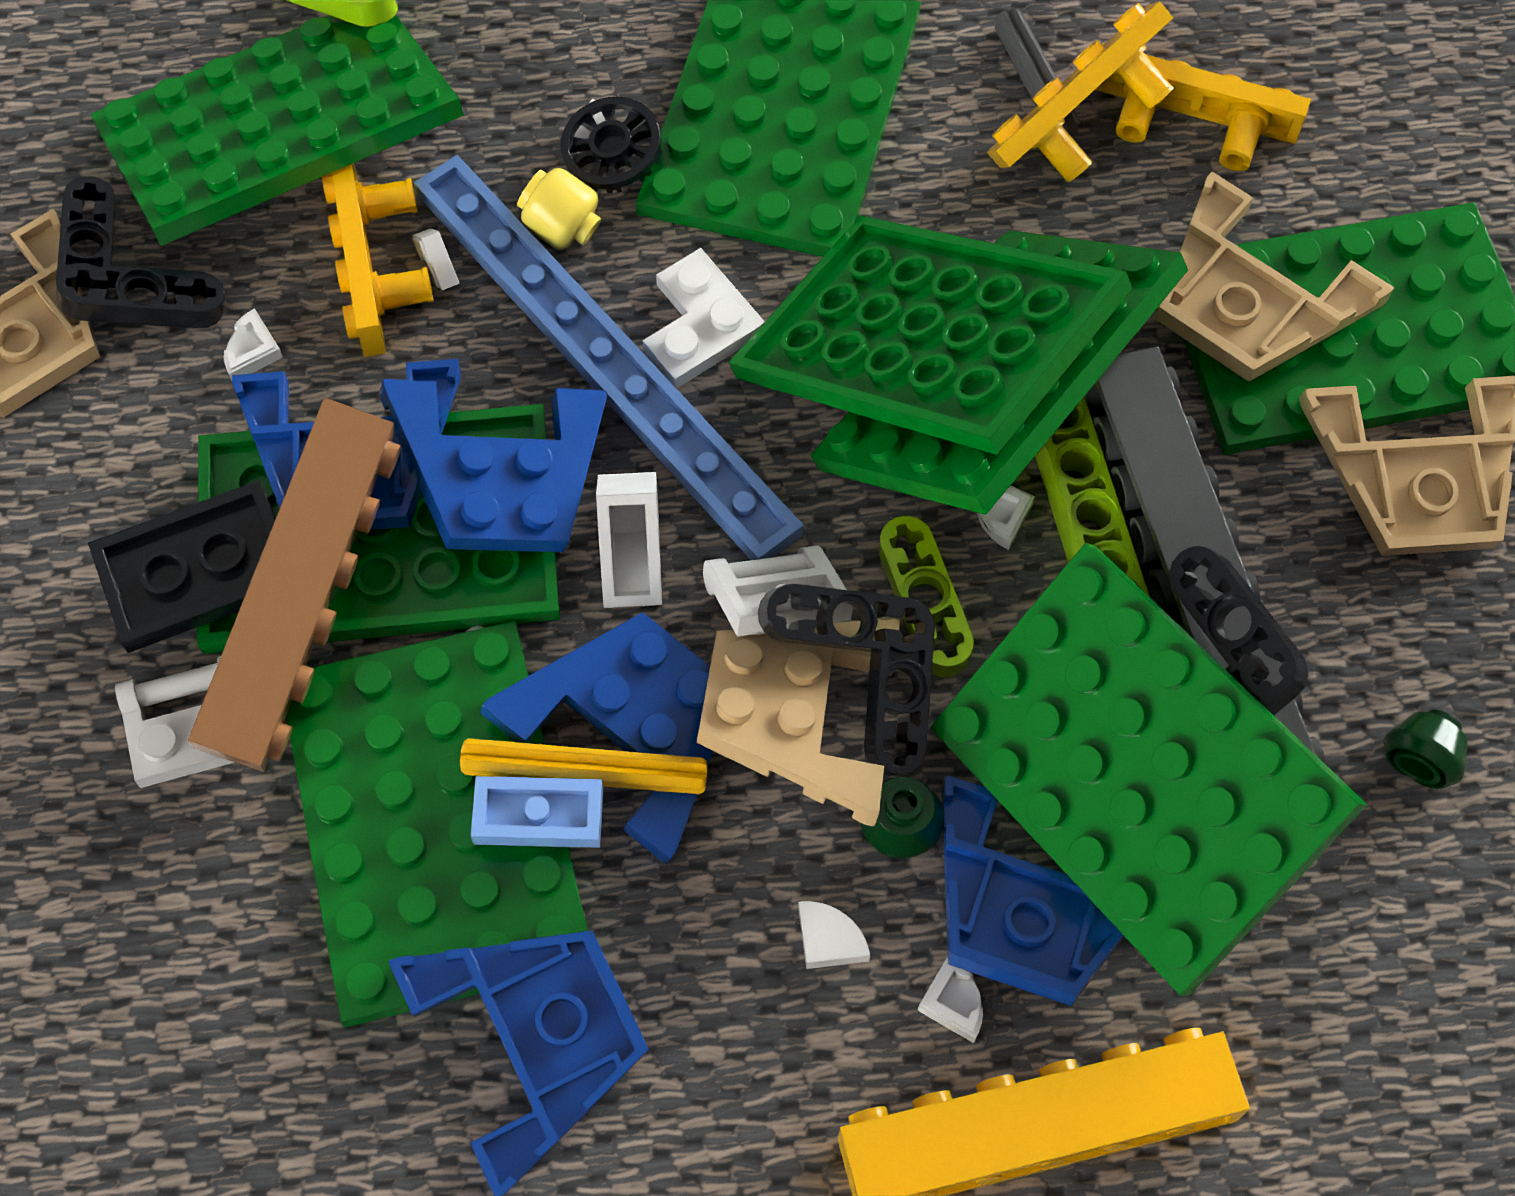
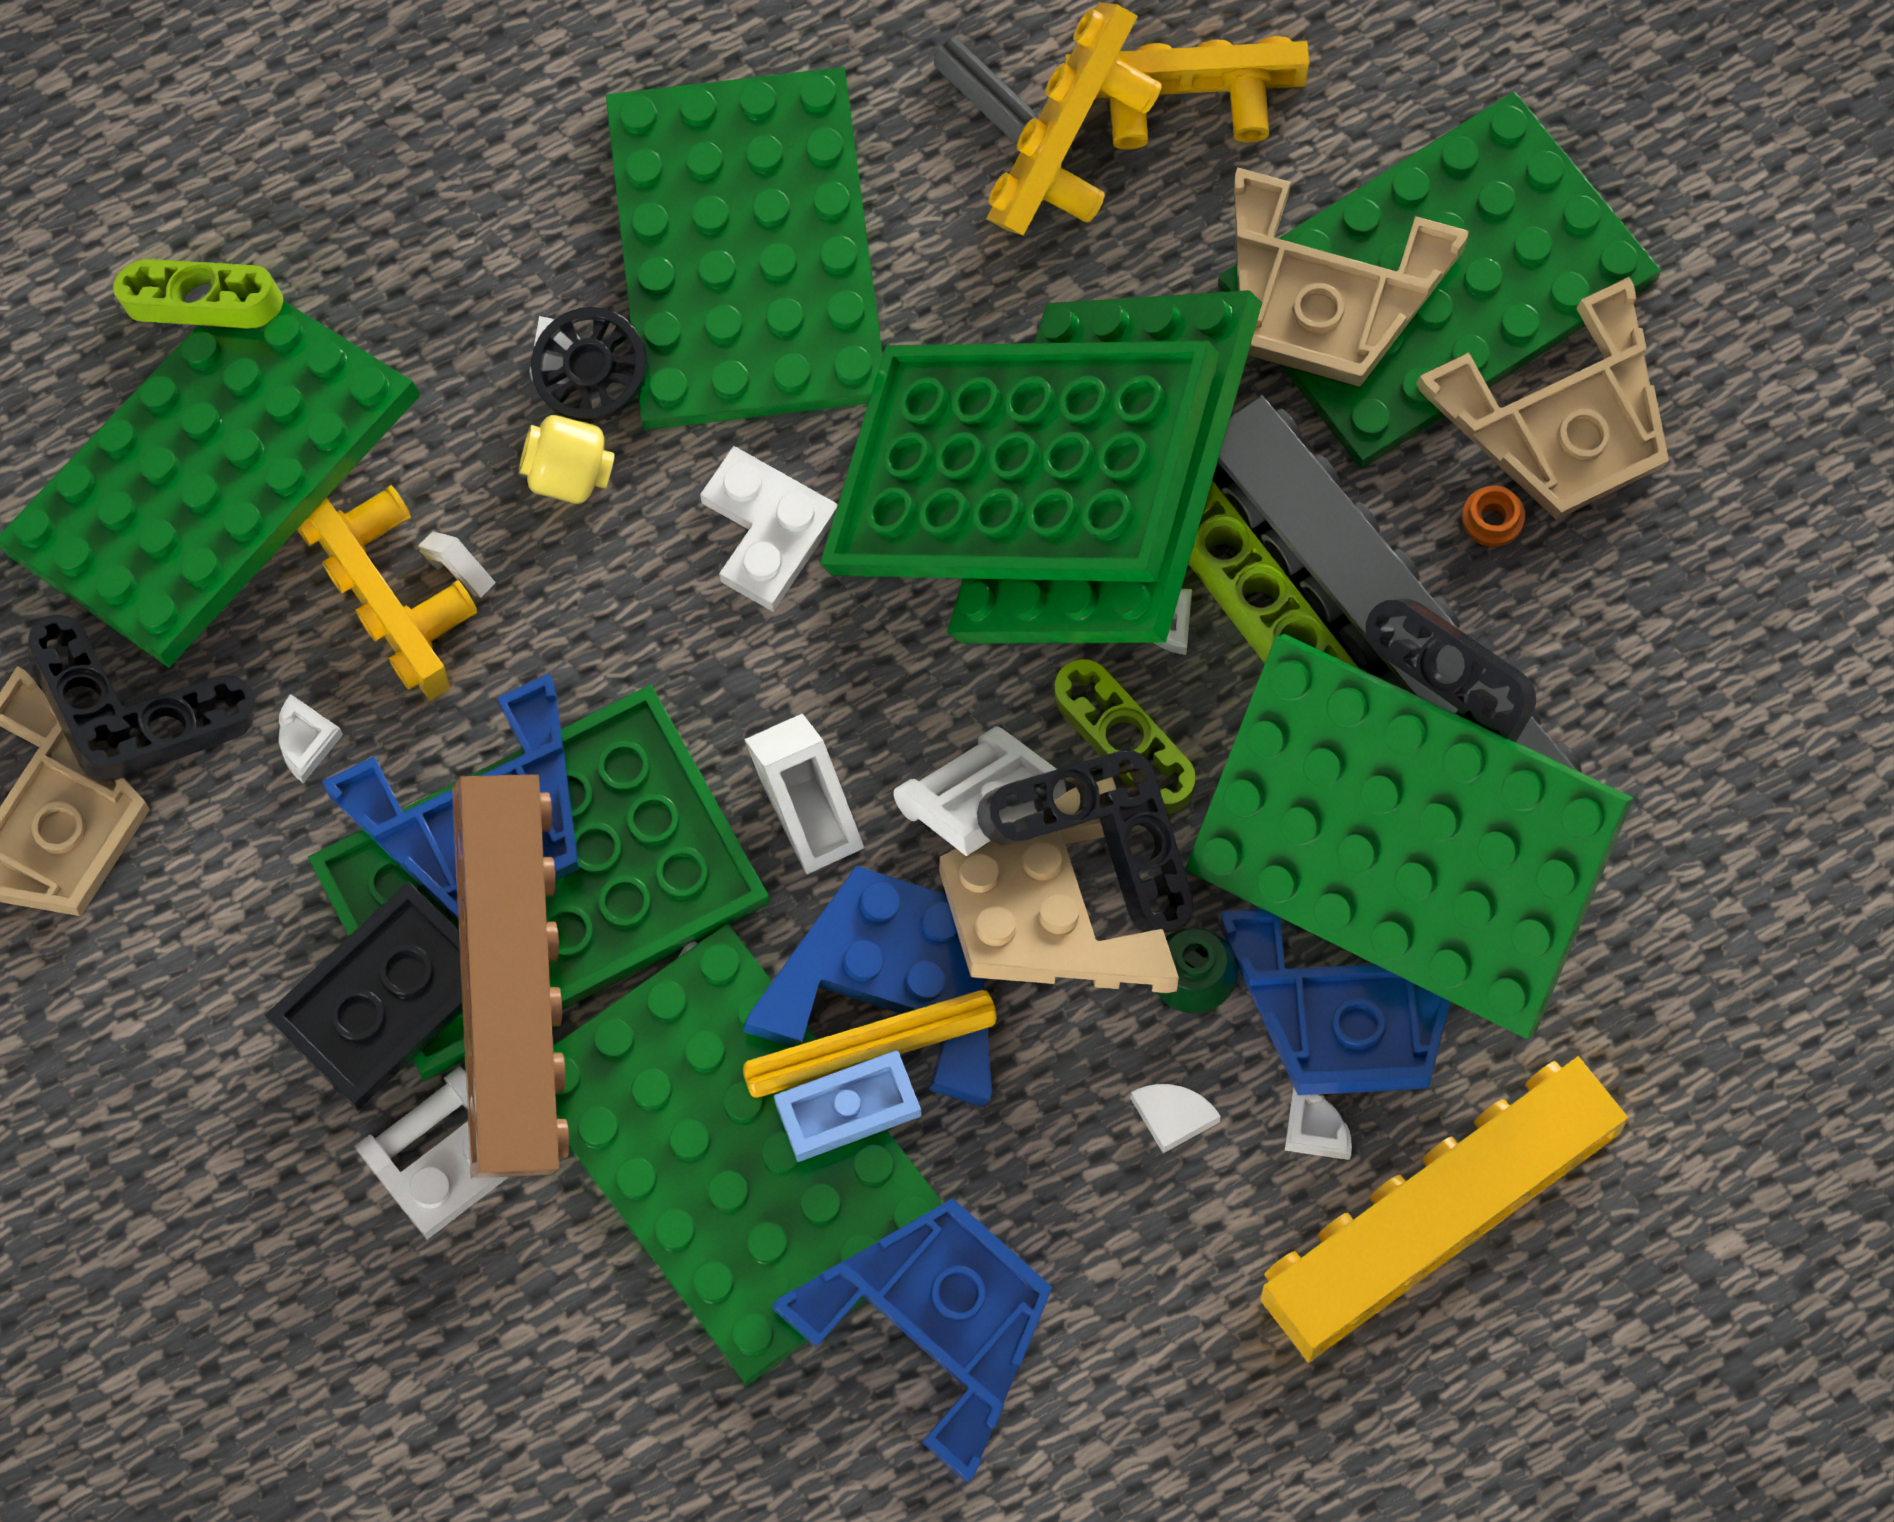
camera: 20 degrees left, 5 degrees up
(494, 488) = (653, 795): blue wing -> none
(610, 362) = (686, 605): medium blue plate -> none
(1333, 519) = (1493, 499): none -> orange plate
(1428, 748) = (1670, 704): dark green cone -> none

